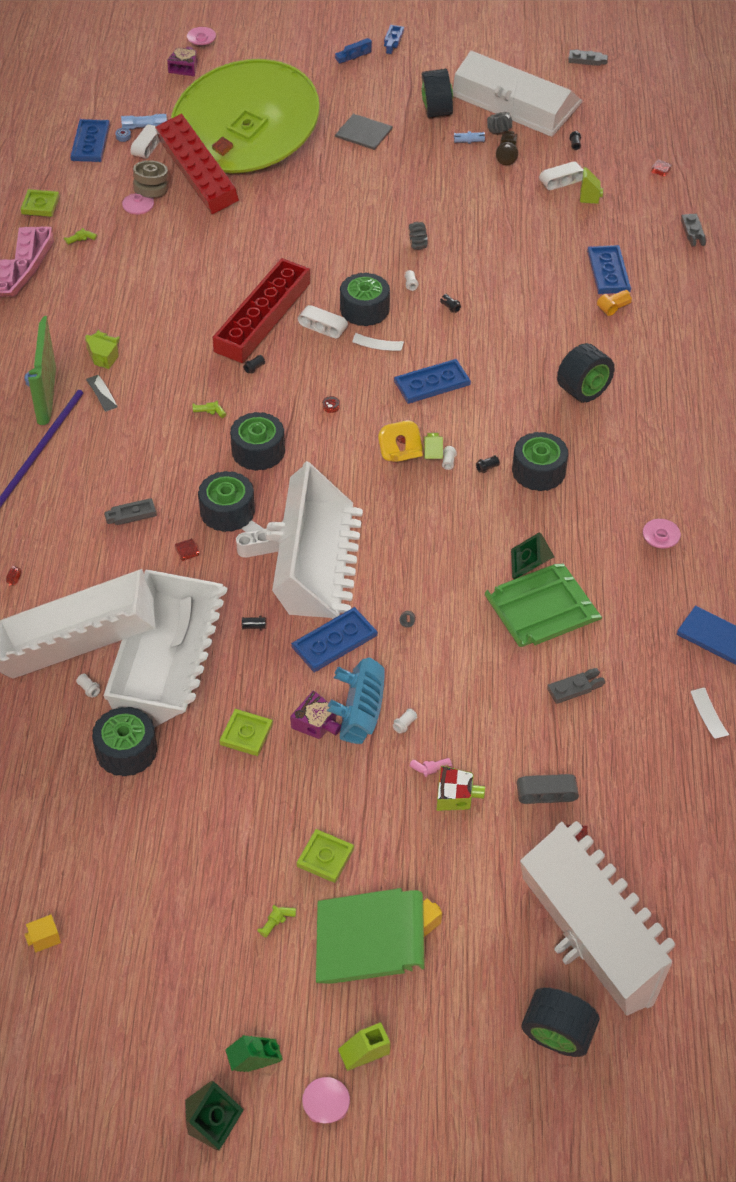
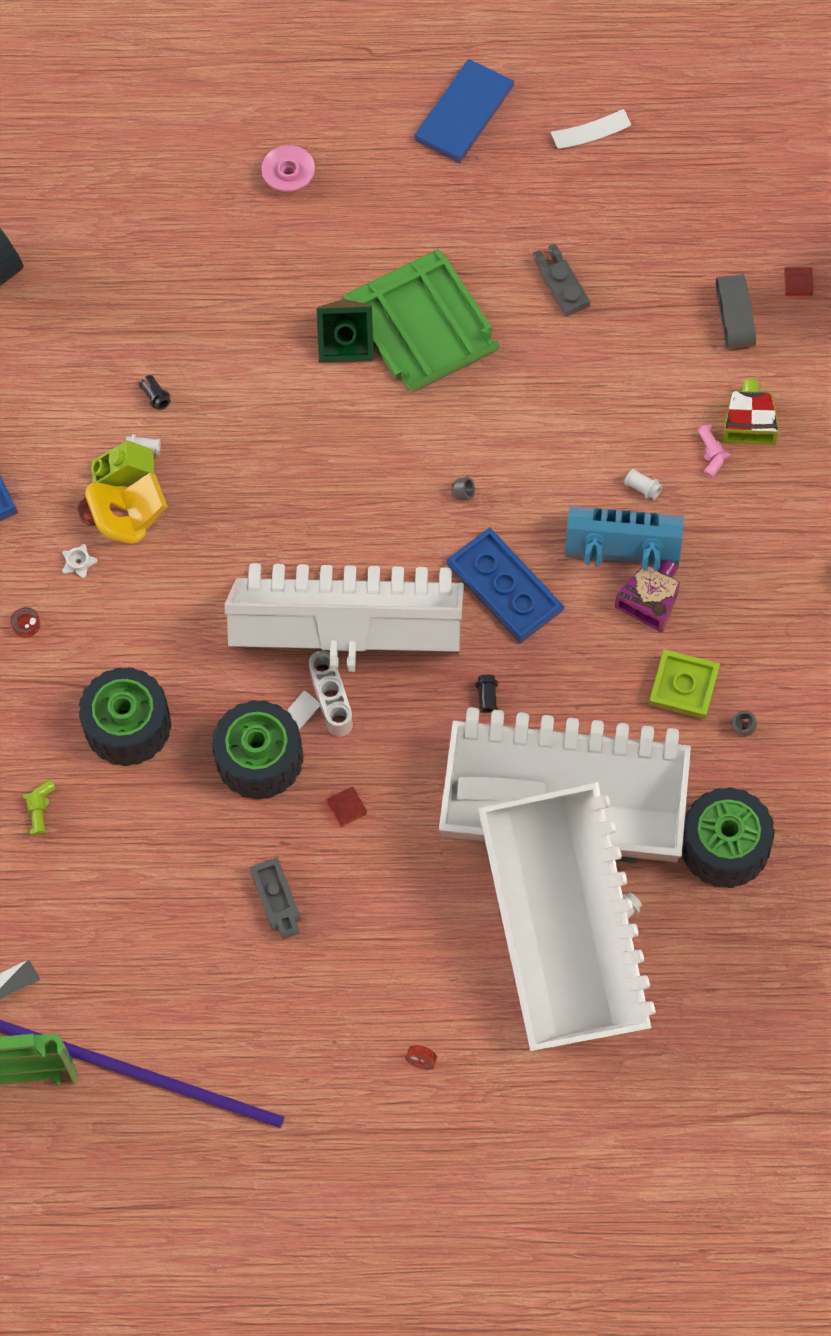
camera: 90 degrees left, 15 degrees up
(211, 764) = (738, 723): none -> dark grey hinge
(370, 425) = (75, 554): none -> white plate
(540, 461) = (158, 316): black wheel -> none

